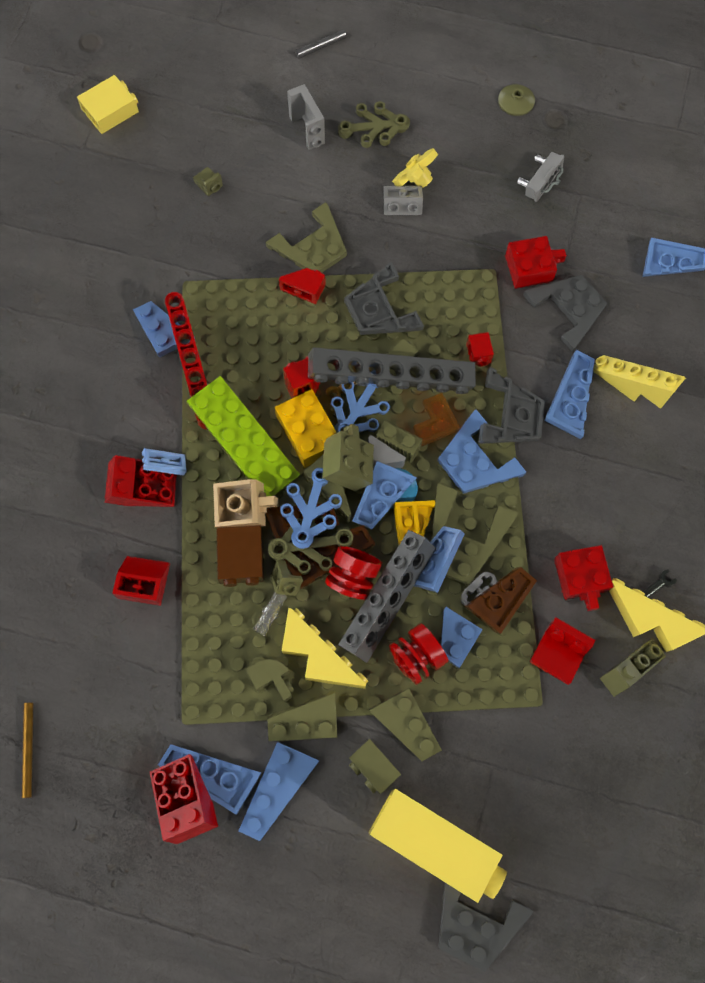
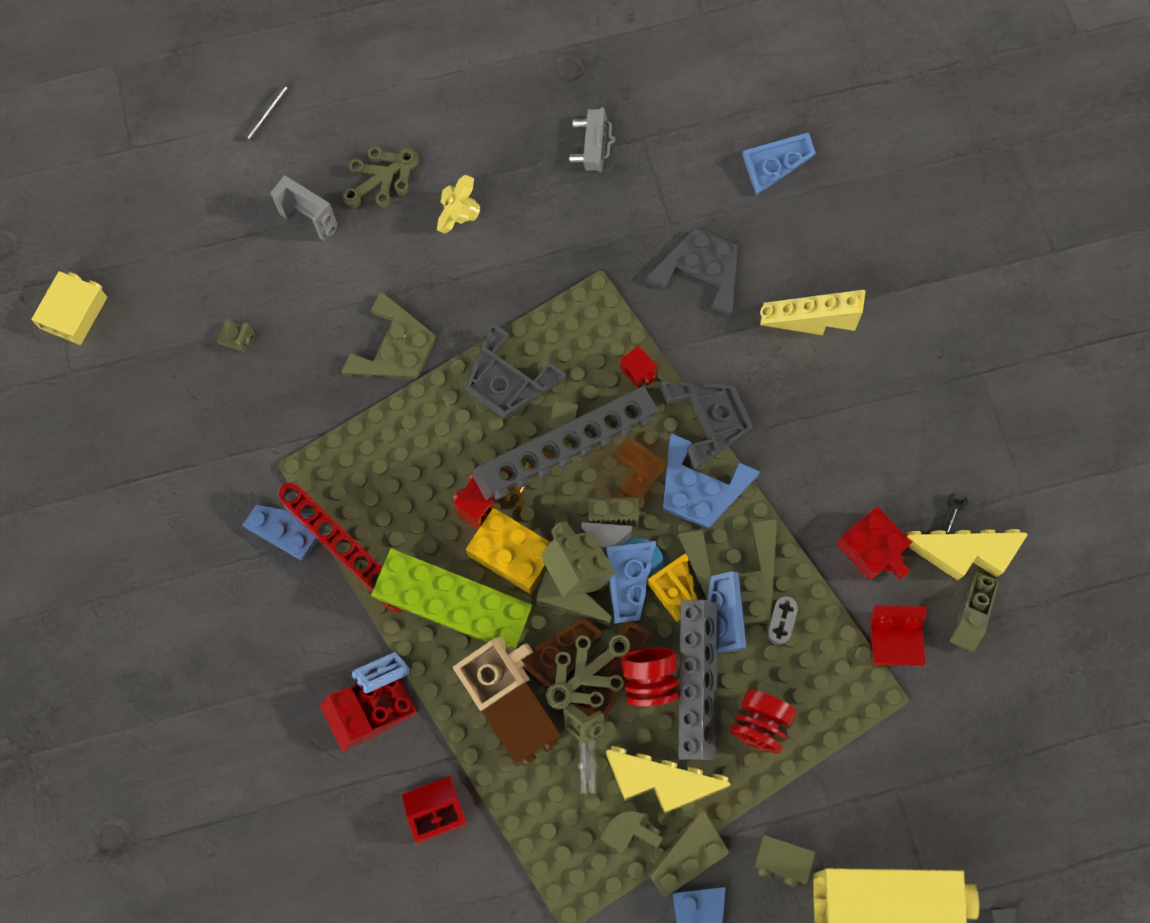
camera: 25 degrees left, 0 degrees up
(304, 284) = (413, 397): red slope -> none
(309, 511) = (569, 639): medium blue plant -> none
(357, 408) = (550, 502): medium blue plant -> none
(403, 200) = (461, 245): light grey bracket -> none
(407, 723) = (790, 797): olive wing -> none
(457, 636) = (789, 680): medium blue wing -> none
(502, 599) = (812, 617): reddish brown wing -> none
(516, 100) = (515, 75): olive dish -> none
(533, 261) = (637, 241): red hinge -> none
(571, 398) = (758, 364): medium blue wing -> none

